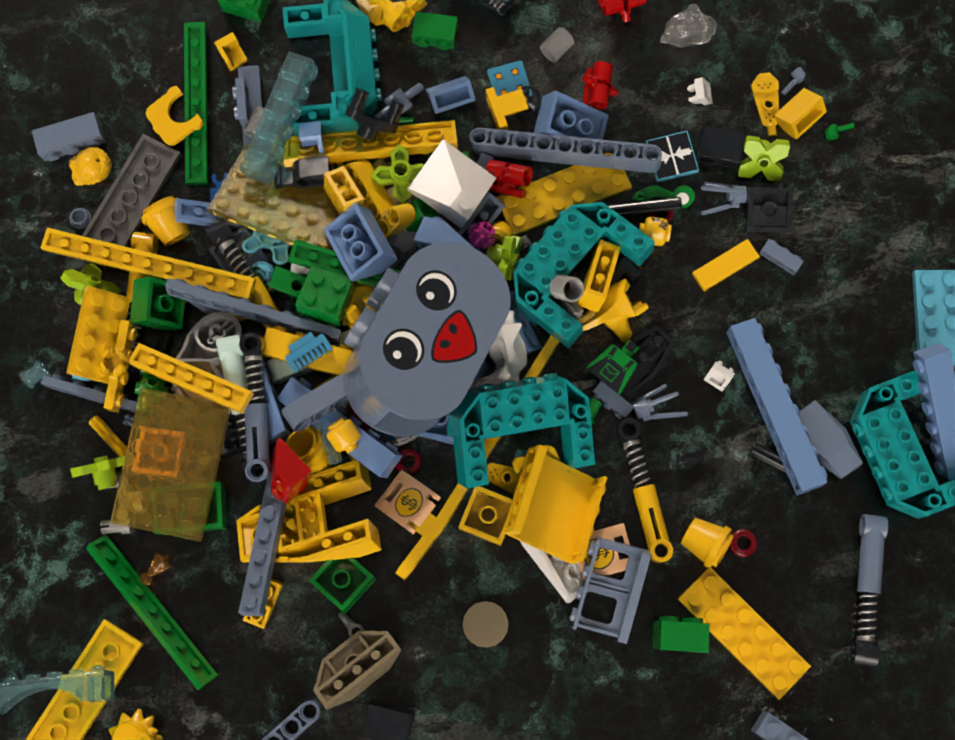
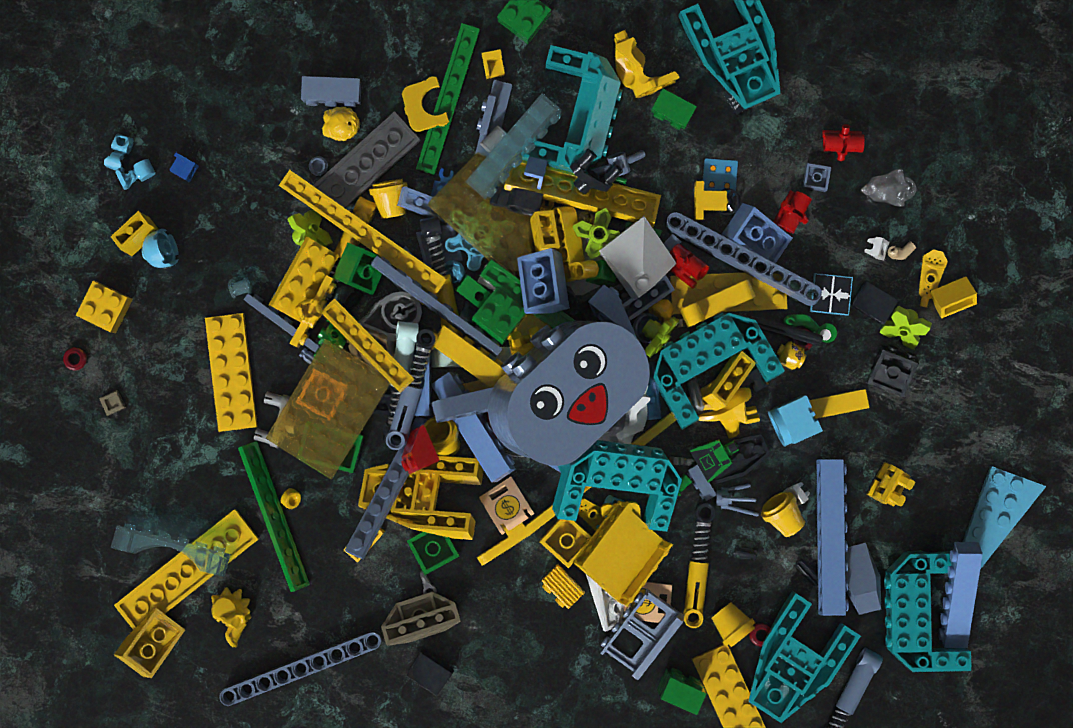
camera: 25 degrees right, 10 degrees up
(49, 465) = (231, 372): none -> yellow plate
(102, 471) = (272, 391): lime plant -> none
(108, 436) = (285, 365): yellow axle -> none
(157, 565) = (291, 481): clear orange piece -> none
(164, 584) = (291, 498): none -> yellow tile
(305, 345) = (469, 352): dark azure piece -> none
(334, 457) = (461, 439): clear light blue axle -> none
(343, 435) = (474, 439): yellow head -> none
(418, 461) = (525, 476): dark red piece -> none
(450, 94) = (666, 171): medium blue brick -> none
(481, 235) = (646, 311): dark pink gear -> none
(485, 624) = (533, 622): dark tan tile -> none
(503, 570) = (562, 586): none -> yellow brick
(537, 218) = (717, 303): none -> yellow beam
(557, 44) = (772, 160): light grey piece -> none
(575, 292) = (703, 390): light grey piece -> none
(609, 45) = (816, 177): none -> sand blue piece
(686, 295) = (794, 420): none -> medium azure piece
(714, 399) = (783, 513): none -> yellow piece
(722, 91) = (901, 253): none -> tan arm
(734, 193) = (870, 347): sand blue plant -> none
(781, 257) = (887, 414): sand blue piece -> none
(792, 568) = (789, 670): none -> teal wedge
(798, 76) = (965, 264): sand blue hand -> none
(817, 326) = (891, 485): none -> yellow hips
(832, 131) = (973, 323): green hand -> none

